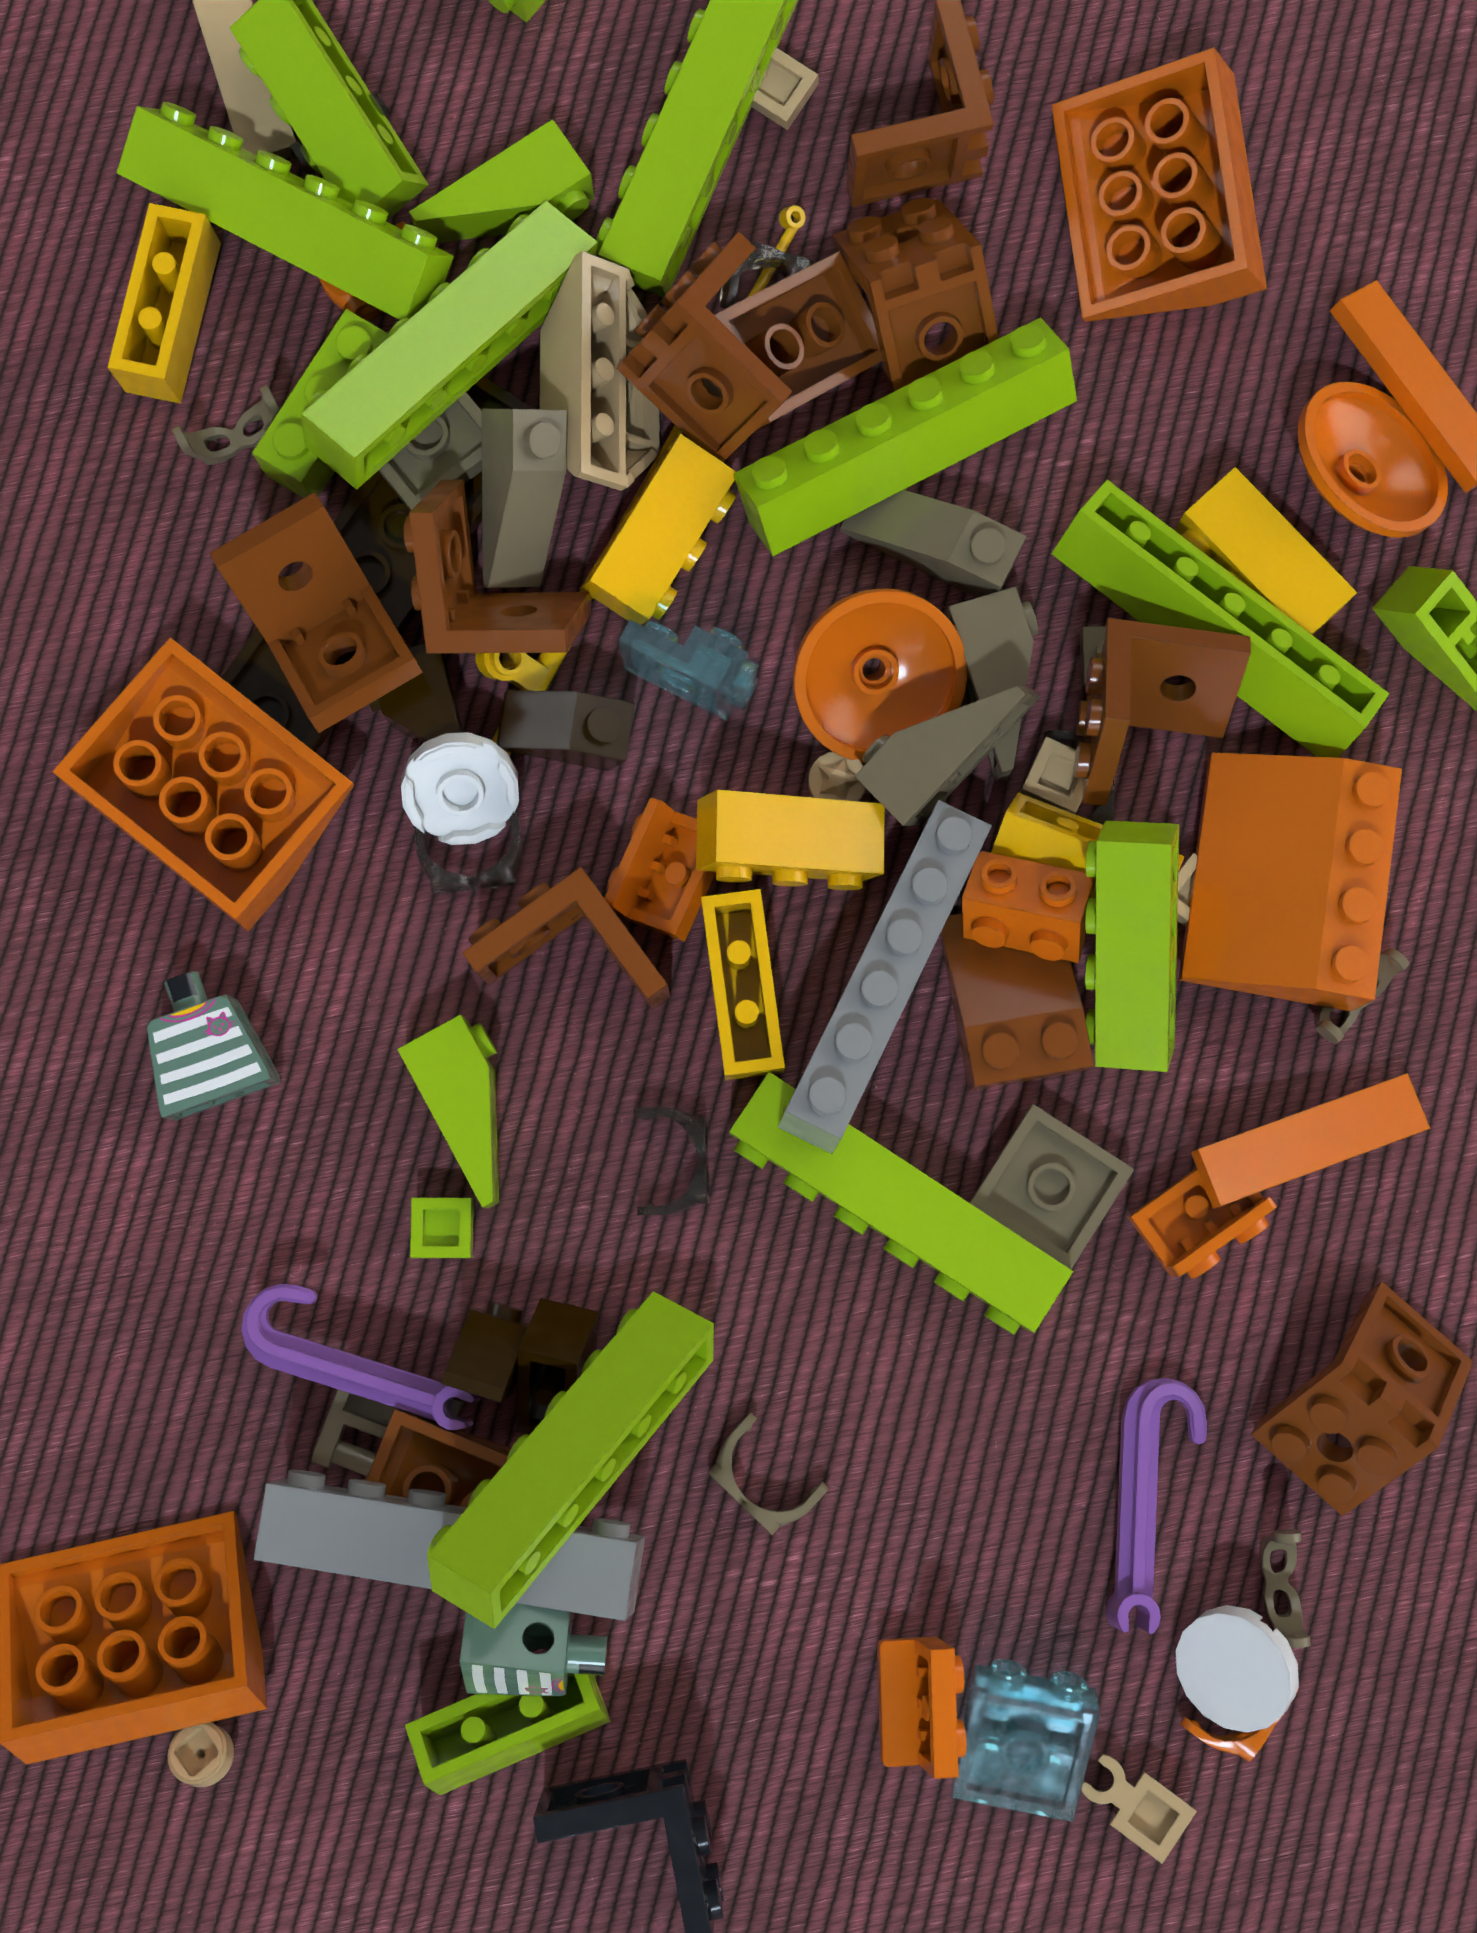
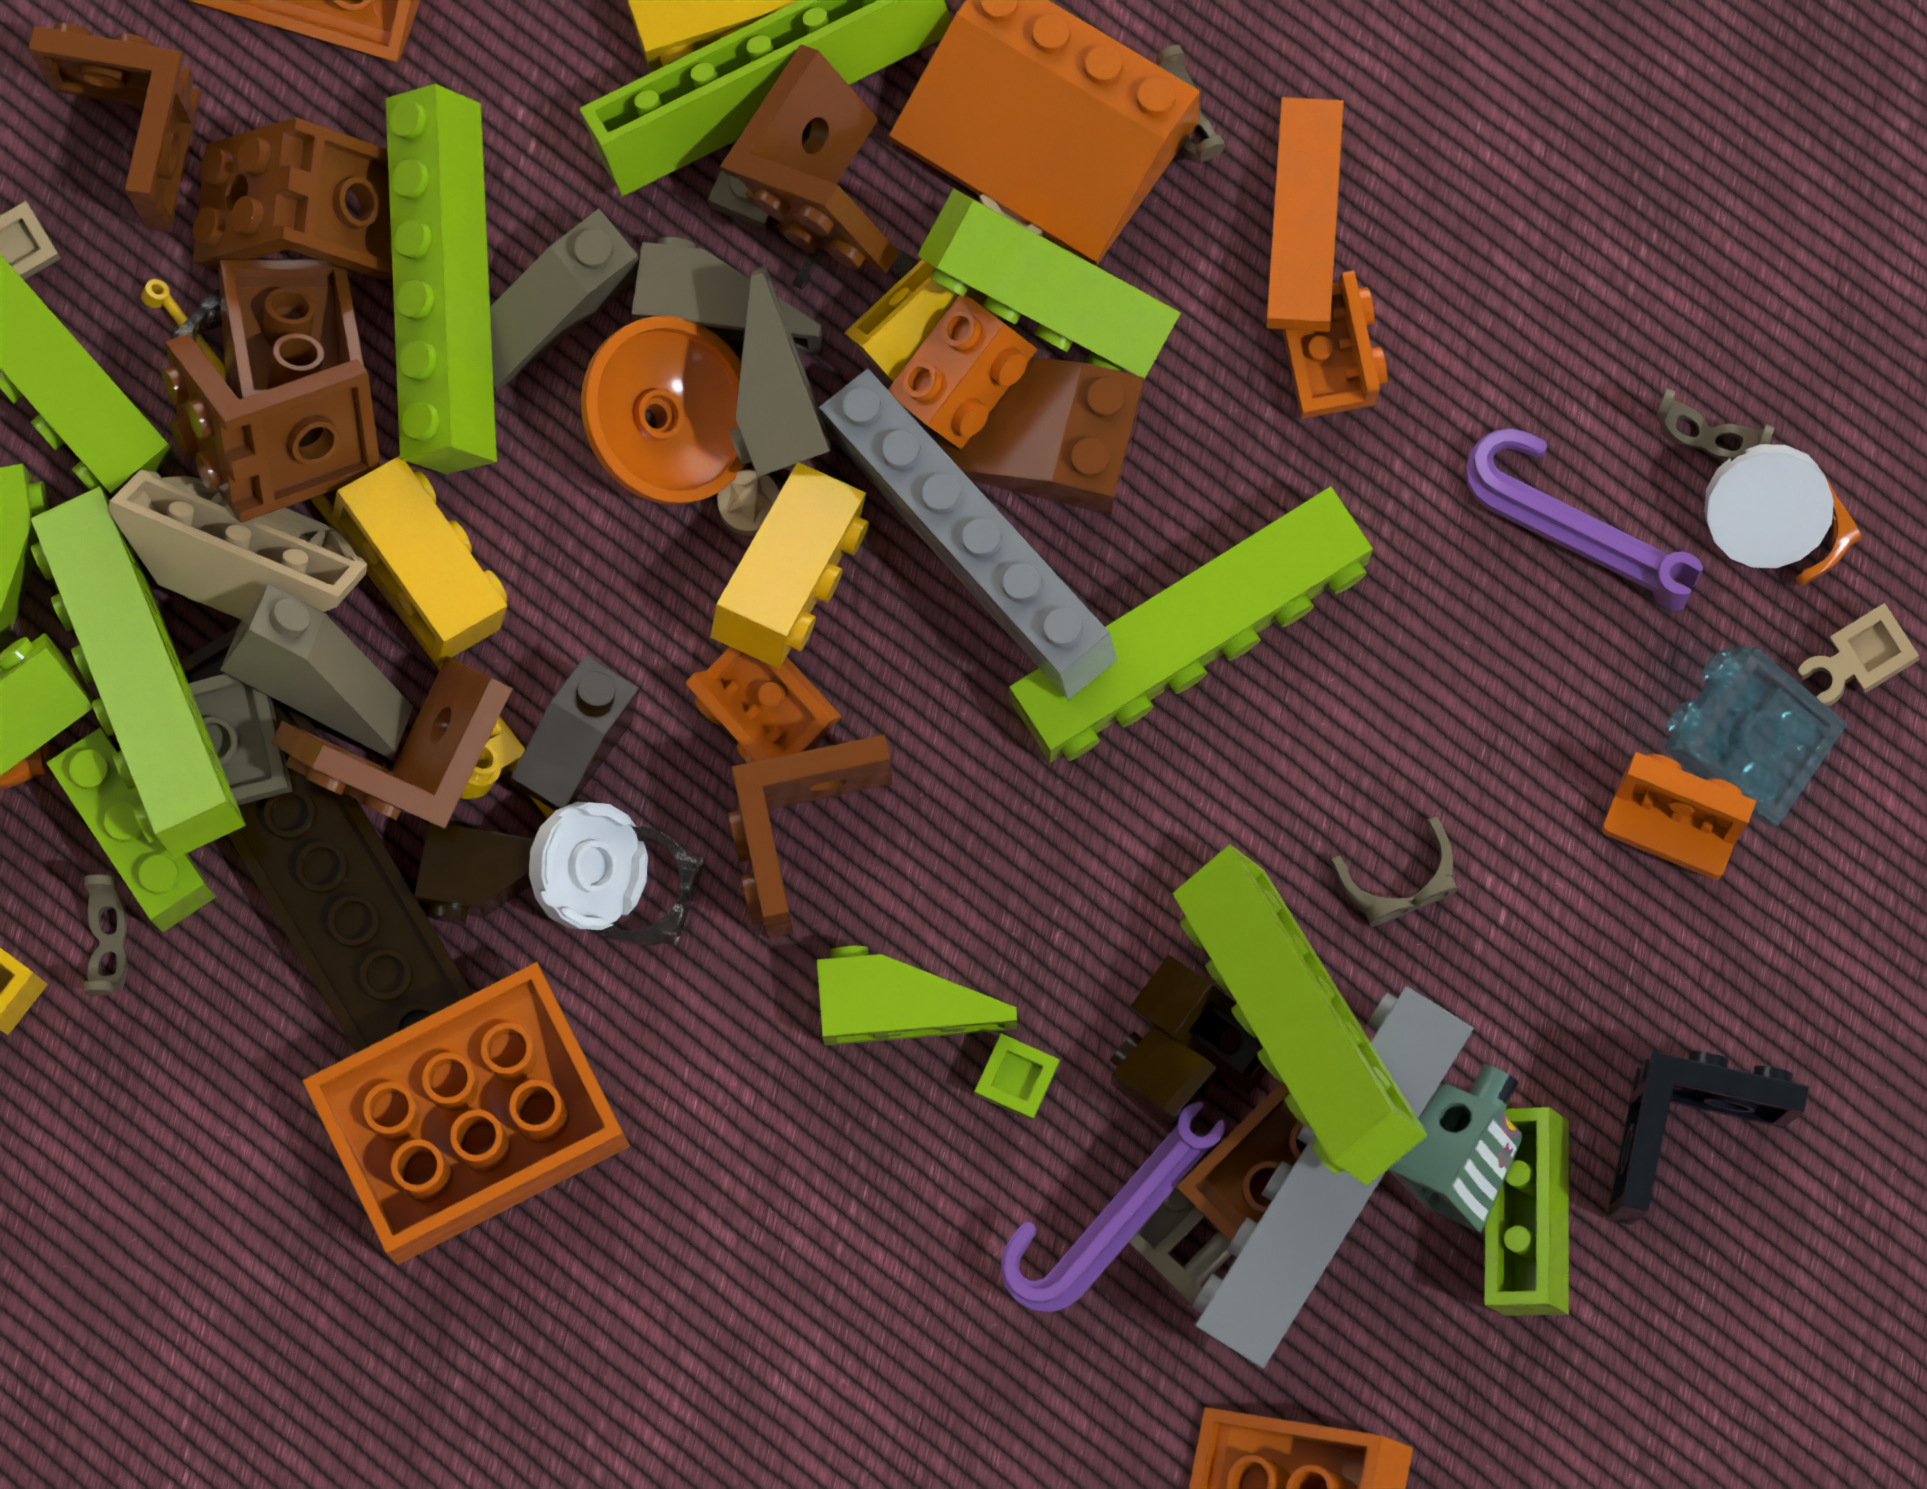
camera: 65 degrees left, 5 degrees down
(204, 1051) = (733, 1234): sand green torso -> none
(316, 612) = (351, 917): dark orange bracket -> none
(700, 1187) = (1031, 789): clear smoke cap -> none
(705, 671) = (588, 574): clear light blue plate -> none
(743, 984) = (912, 676): yellow brick -> none
(1051, 1186) = (1238, 473): dark tan plate -> none
(1053, 778) = (843, 292): tan plate -> none
(1374, 1400) = (1571, 253): dark orange bracket -> none

